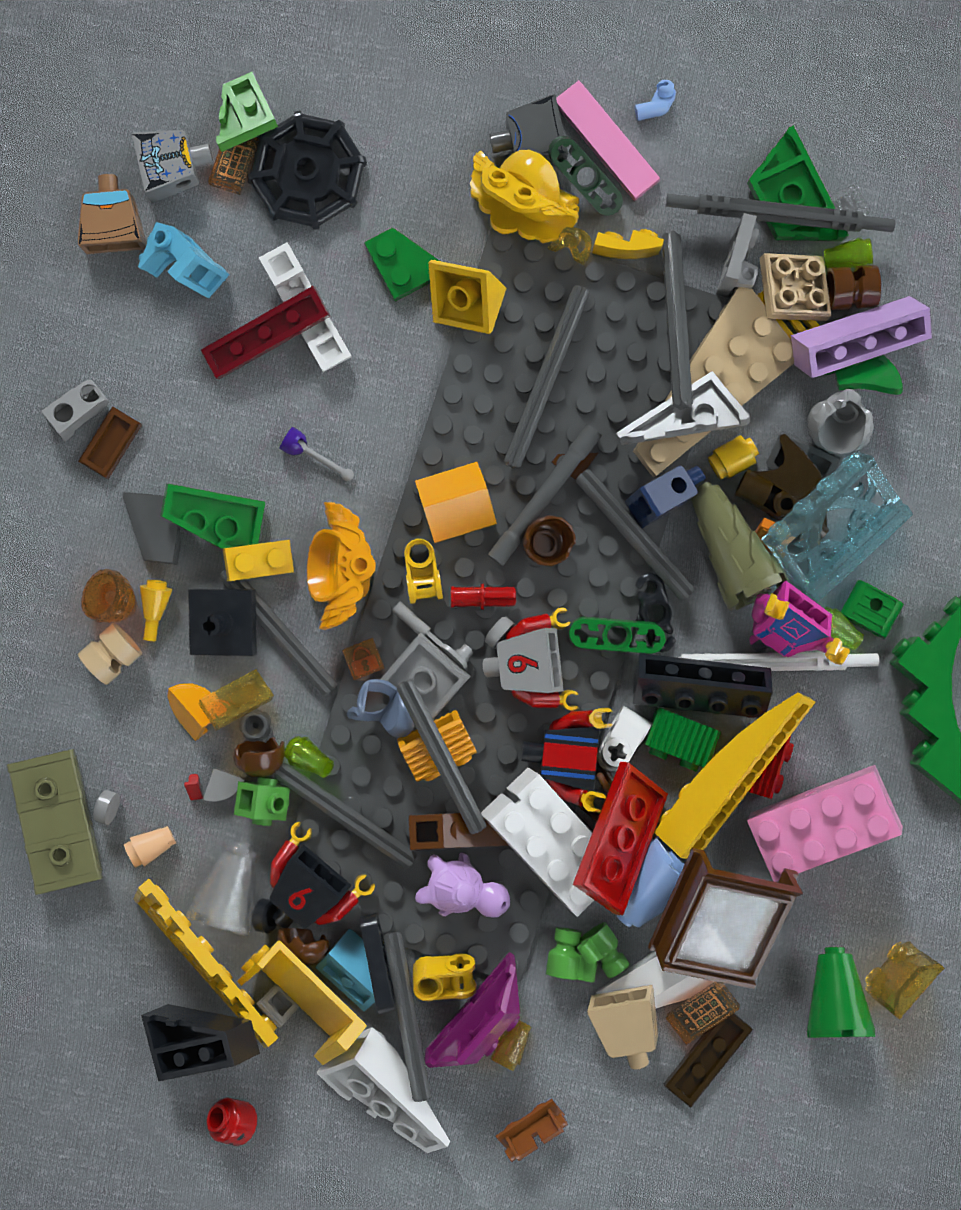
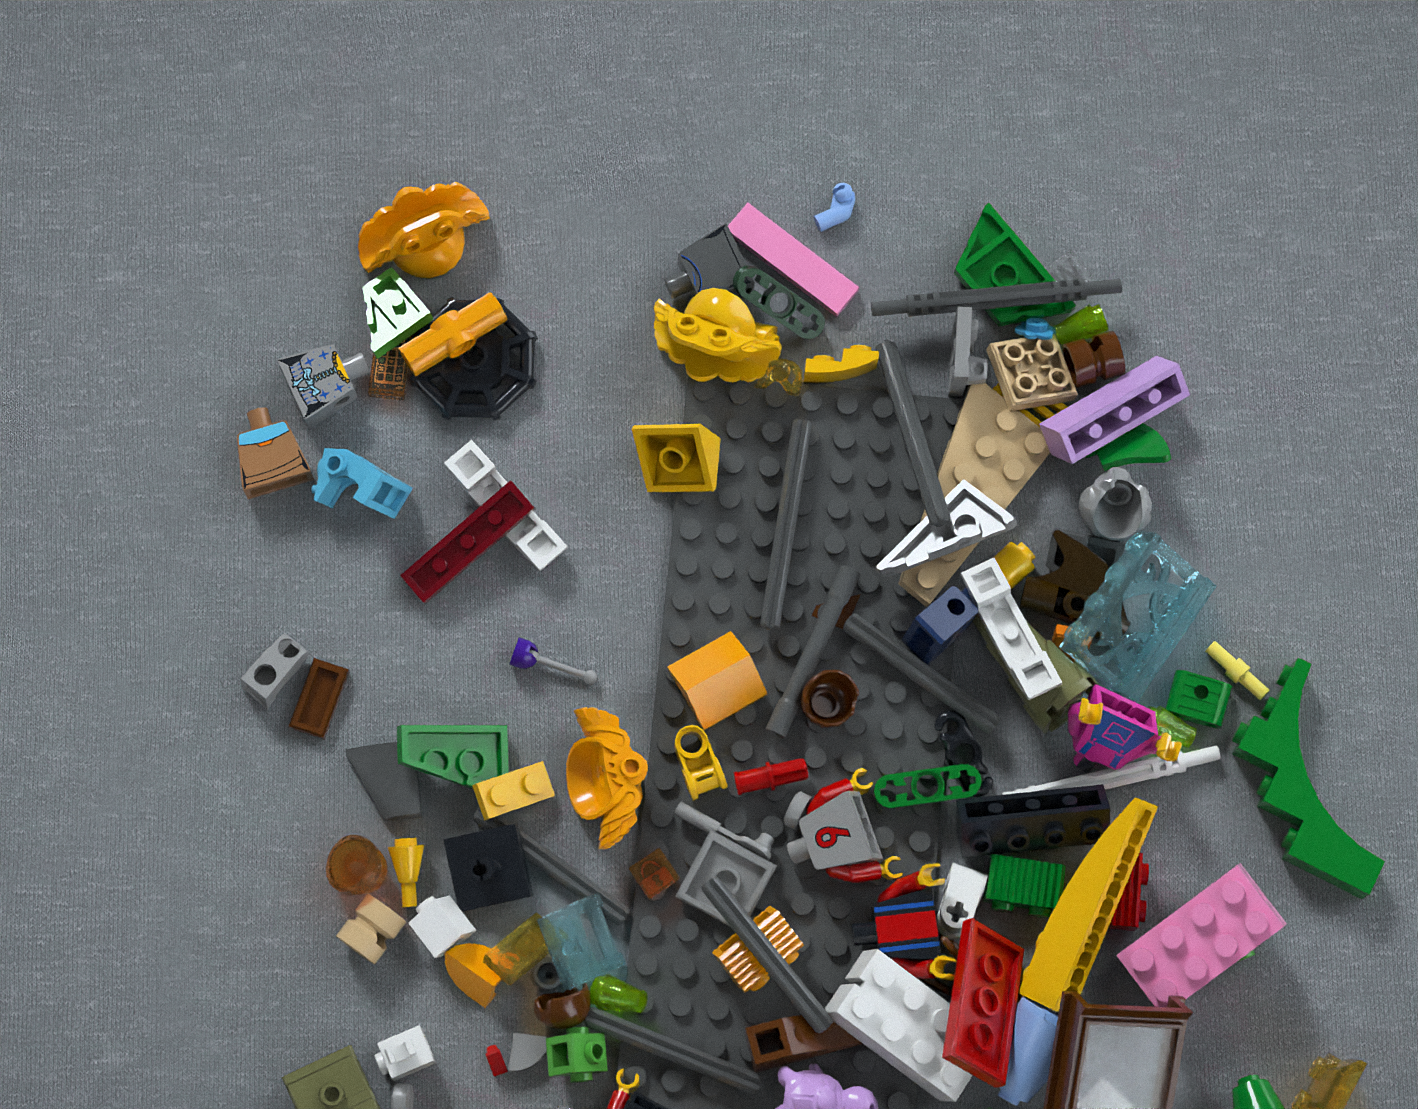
camera: 15 degrees left, 10 degrees down
(117, 766) = (404, 1054): none -> white brick
(170, 663) = (441, 925): none -> white brick
(277, 708) = (571, 947): none -> clear light blue plate
(286, 43) = (421, 229): none -> light orange piece
(291, 143) = (453, 334): none -> light orange piece
(393, 717) = (706, 928): sand blue piece -> none
(400, 262) = (597, 436): green wing -> none
(721, 516) = (1009, 630): none -> white slope
(807, 249) = (1035, 328): none -> dark azure plant
(912, 592) = (1237, 670): none -> light yellow bar

